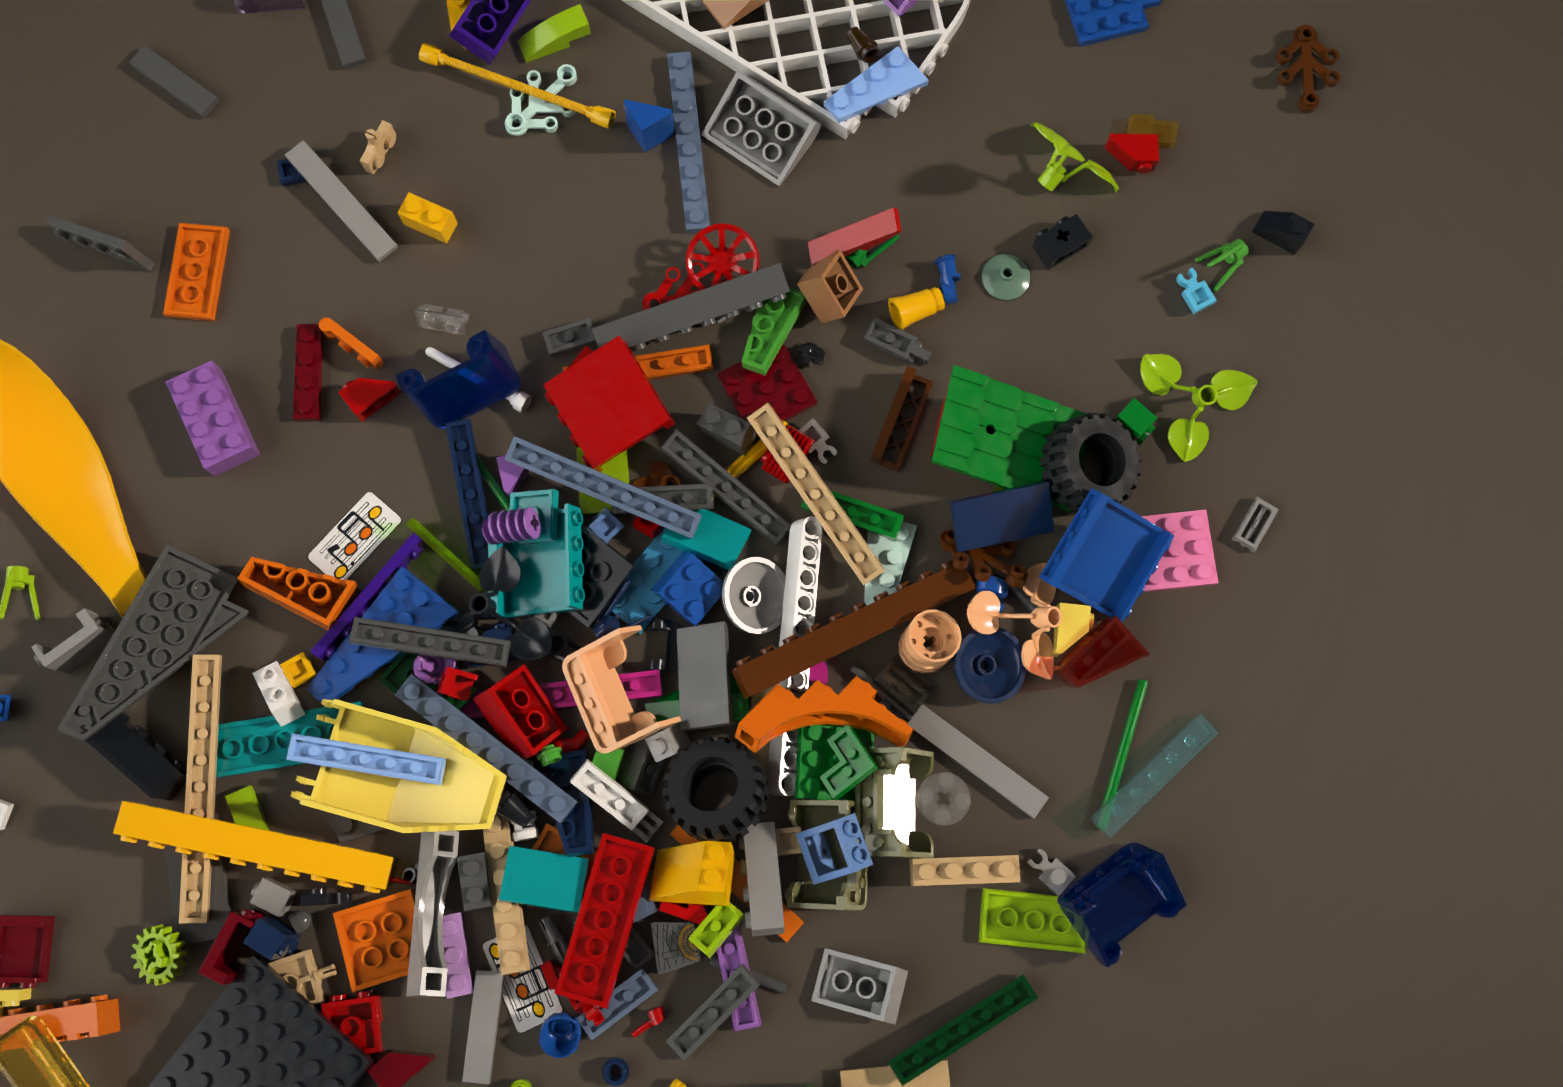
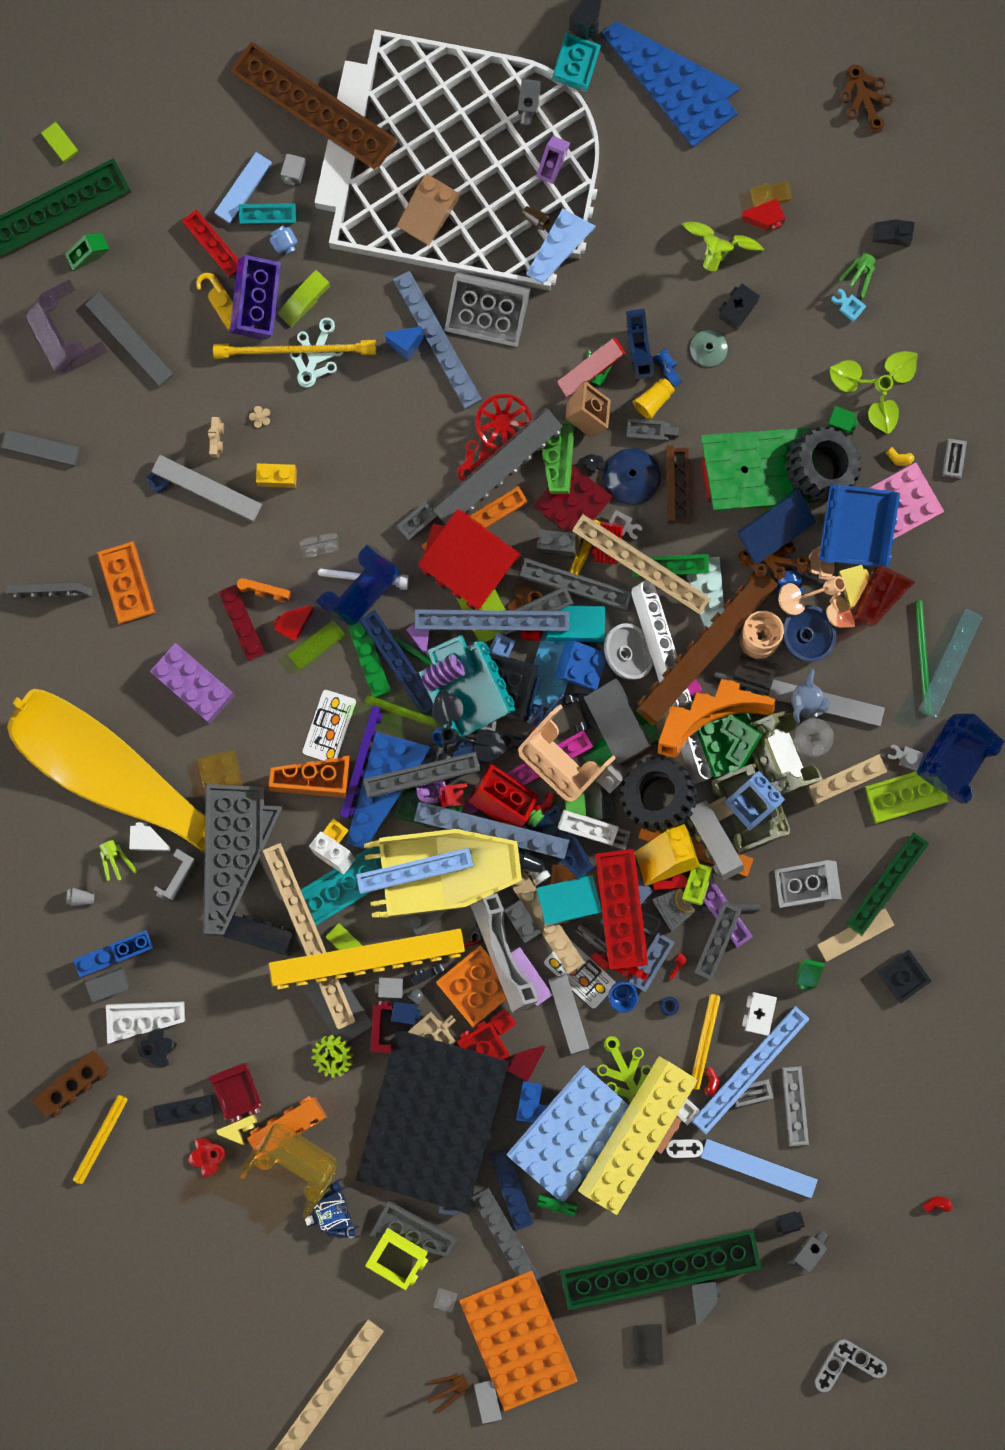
camera: 15 degrees left, 5 degrees up
(67, 581) = (146, 839): none -> white slope
(199, 536) = (220, 769): none -> clear yellow plate
(384, 434) = (316, 645): none -> clear neon green tile
(394, 1002) = (503, 1021): none -> red plate
(438, 481) = (369, 661): none -> green plate
(443, 147) = (260, 416): none -> tan plant
(847, 403) = (625, 487): none -> dark blue dish
(924, 234) = (639, 344): none -> dark blue arch
(956, 748) = (809, 700): none -> sand blue piece
(1186, 498) = (900, 459): none -> yellow arm

